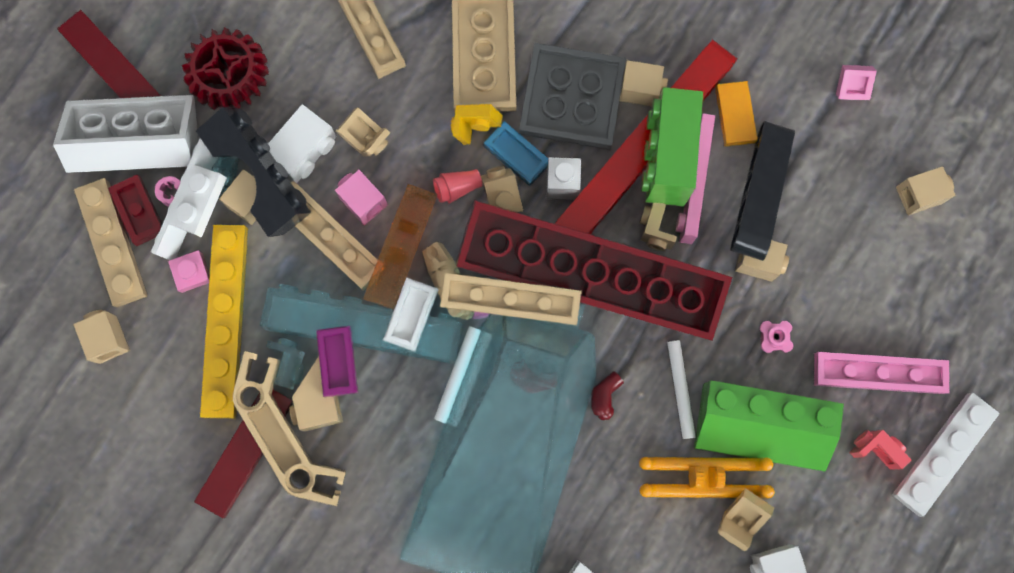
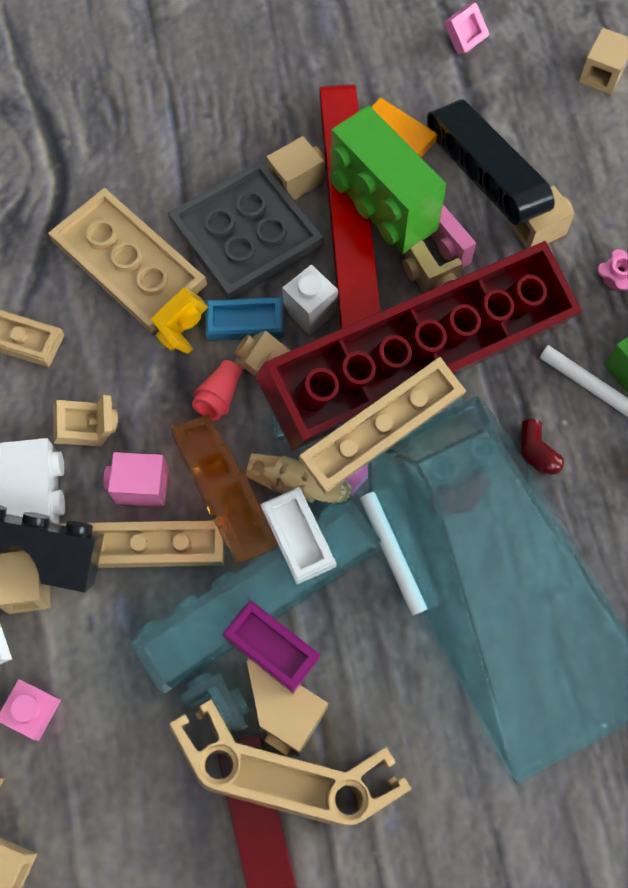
camera: 40 degrees left, 10 degrees down
(224, 321) = (115, 728): yellow plate -> none

